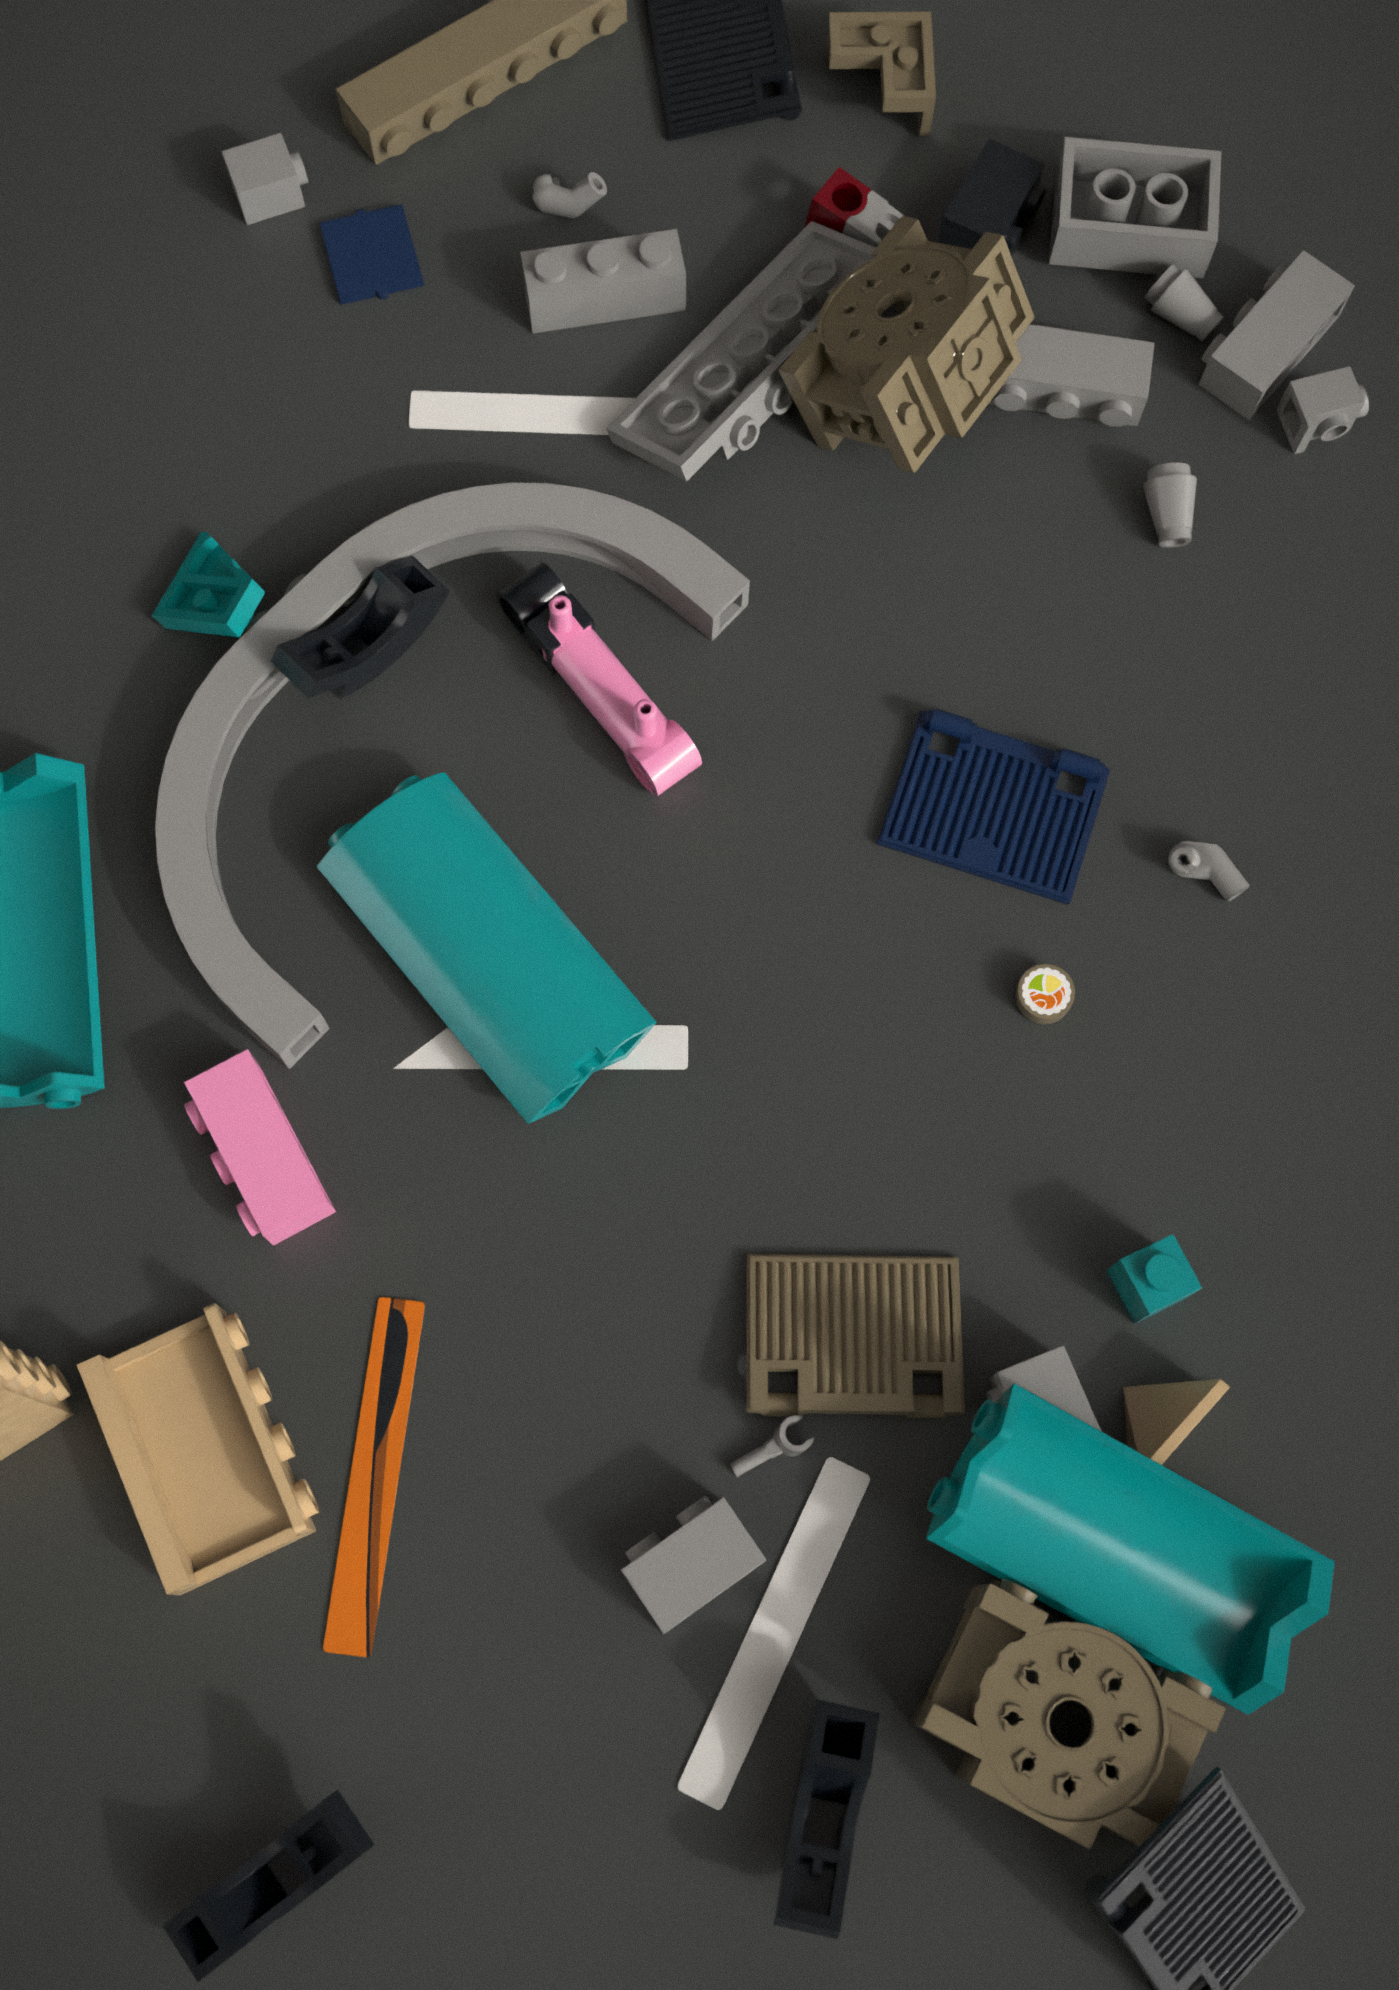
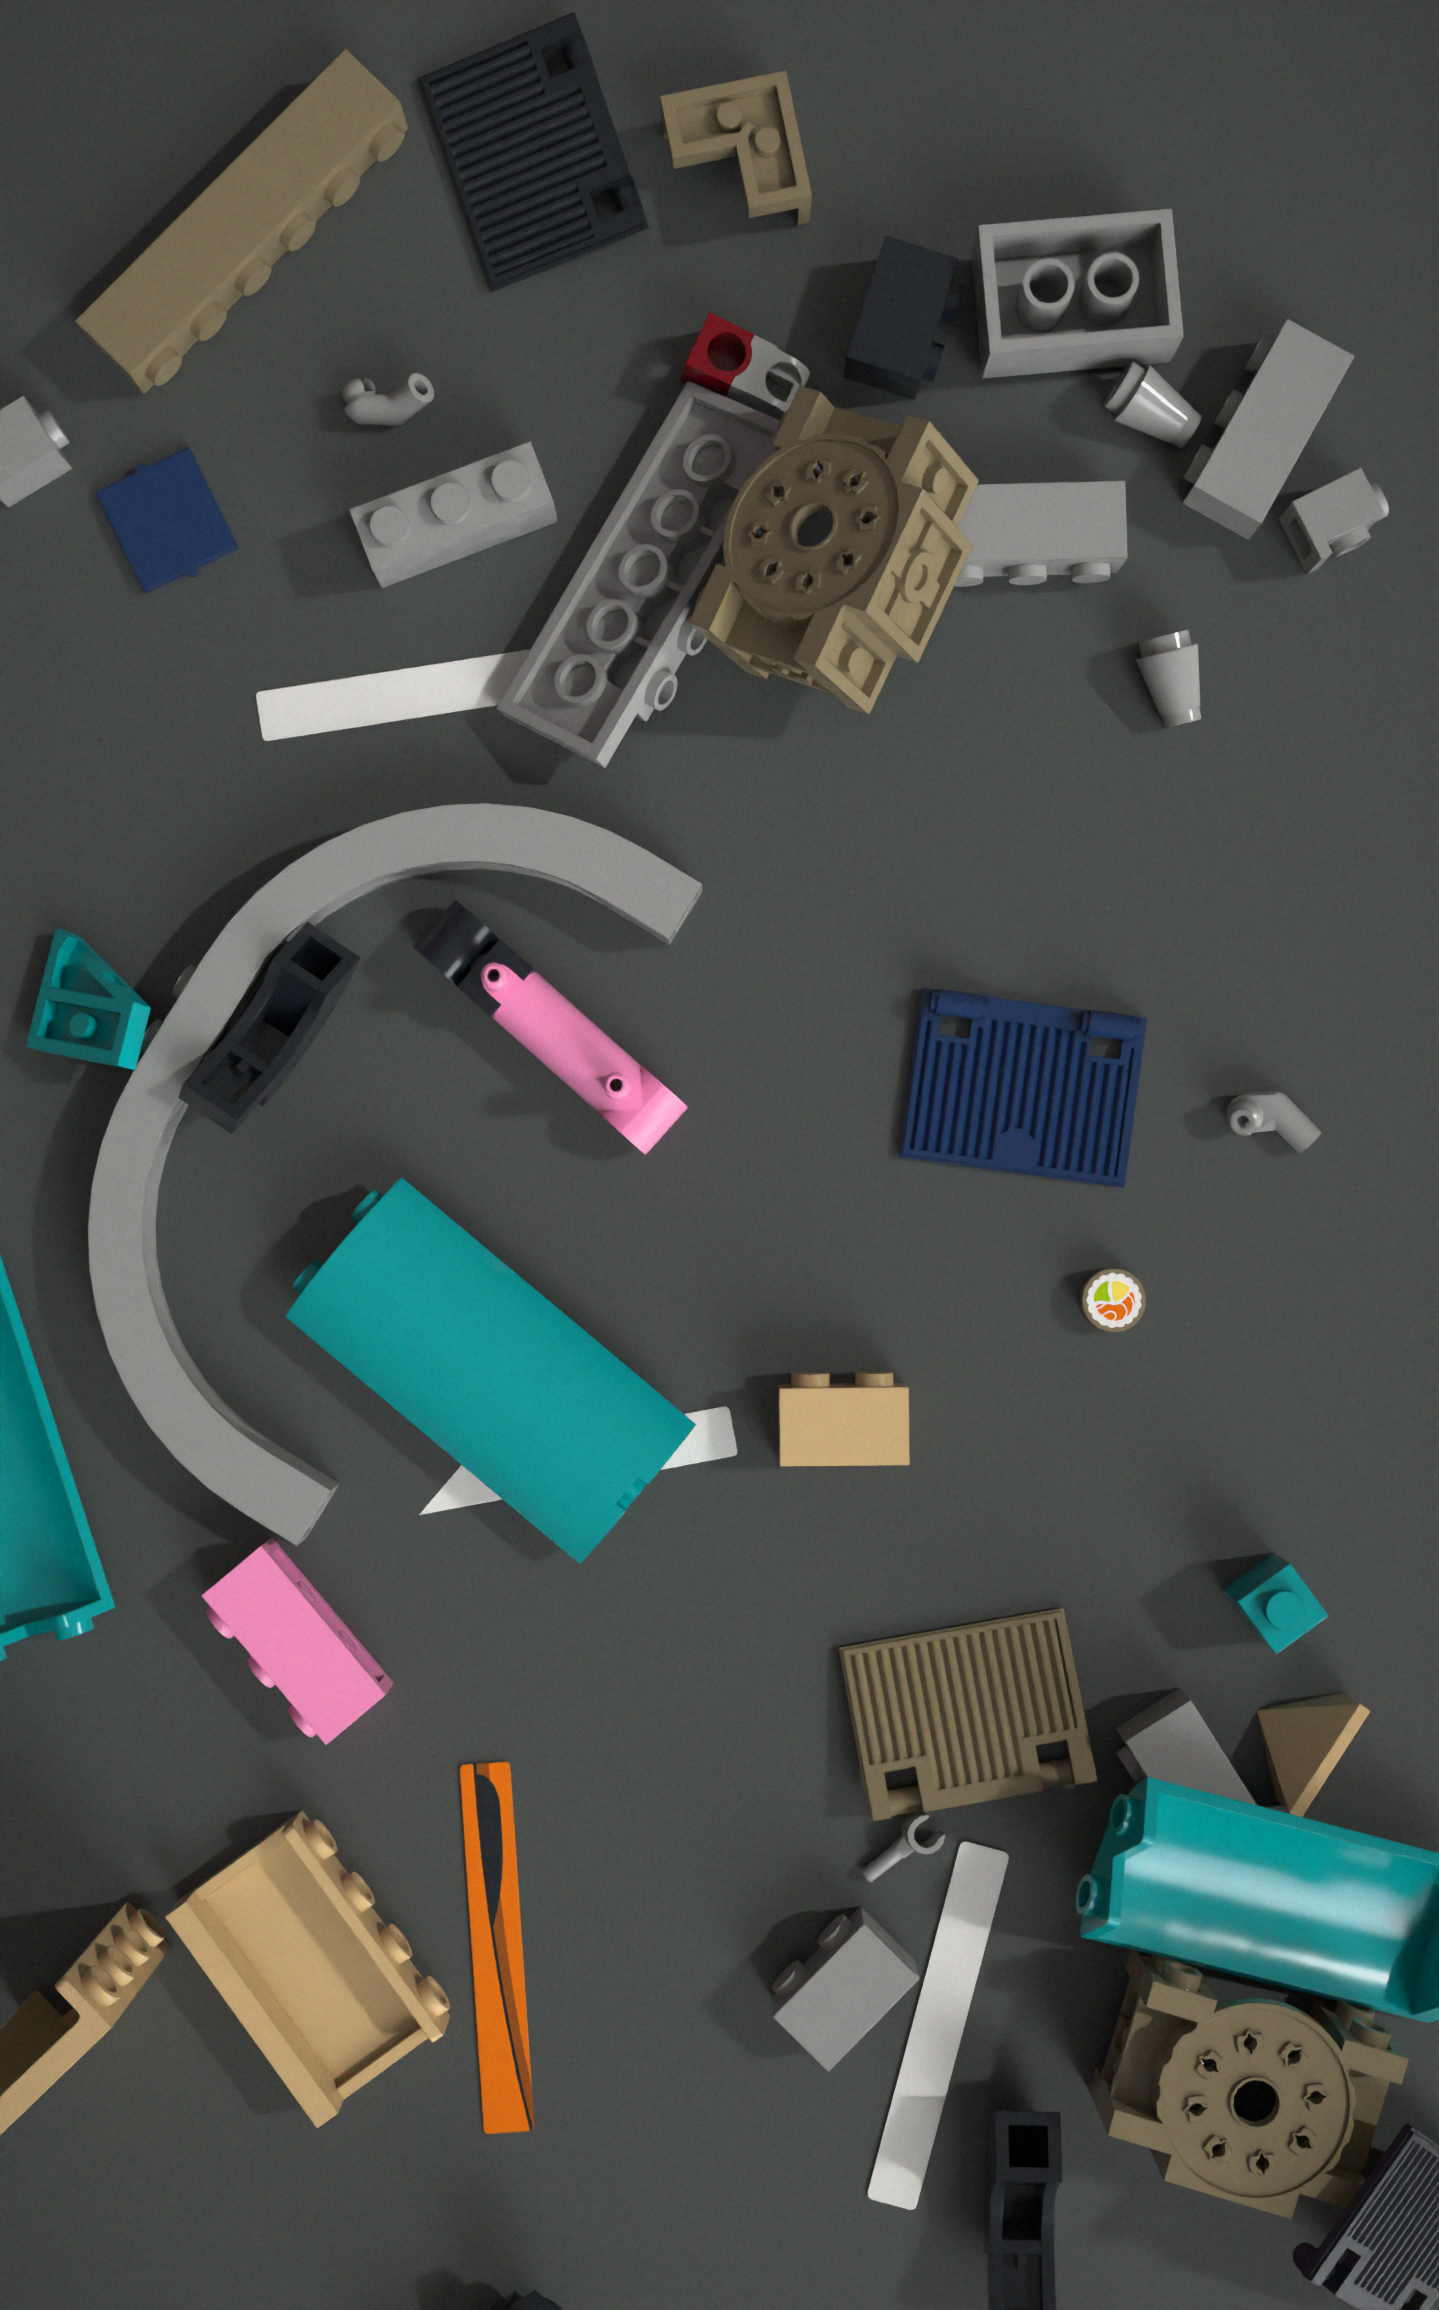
camera: 10 degrees left, 15 degrees up
(787, 1048) = (843, 1421): none -> tan brick

